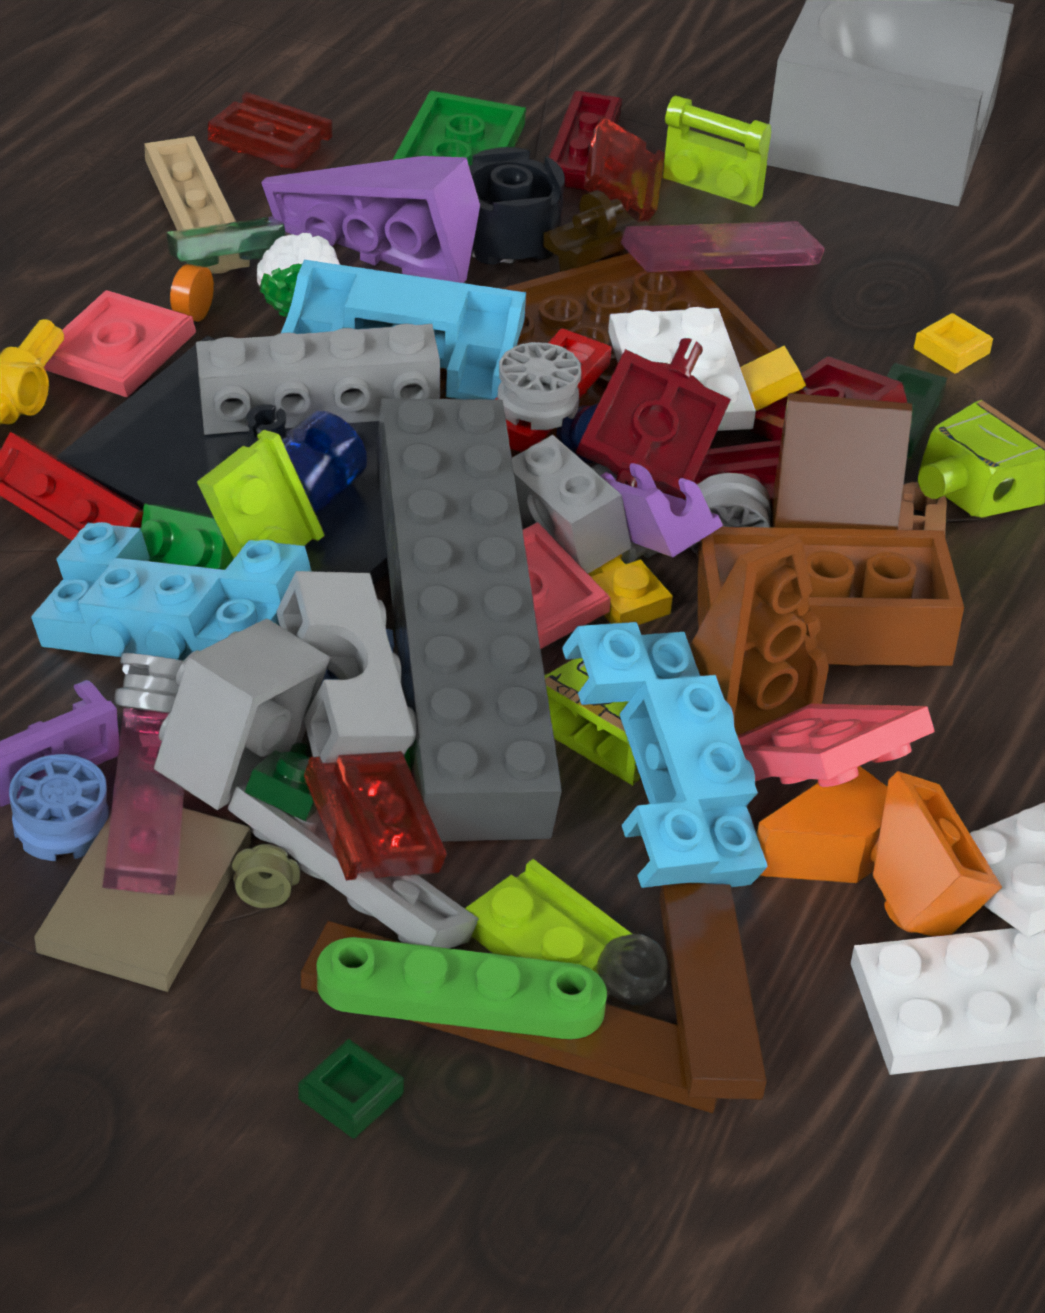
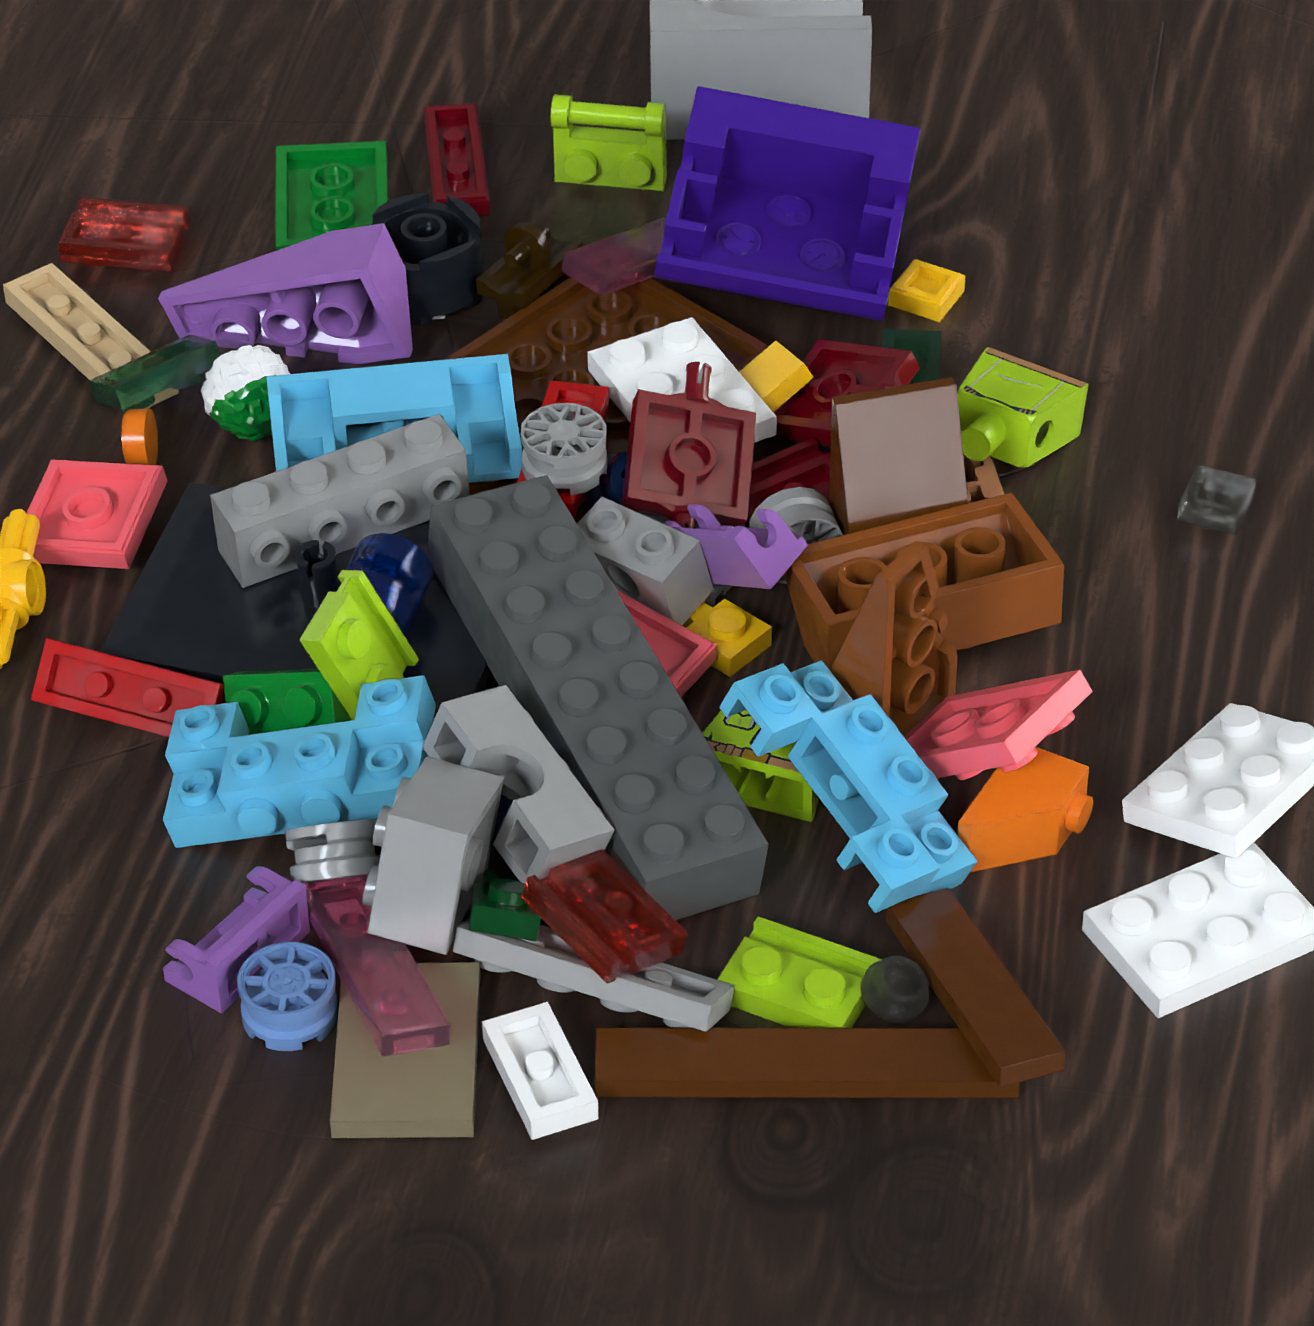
camera: 15 degrees left, 0 degrees up
(254, 946) = (540, 1070): none -> white plate
(264, 875) = (513, 993): olive plate -> none
(351, 1088) = (688, 1171): dark green tile -> none
(461, 988) = (751, 1051): bright green plate -> none
(624, 169) = (519, 185): clear red plate -> none
(847, 233) = (788, 203): none -> dark purple panel
(928, 860) = (1123, 814): orange slope -> none

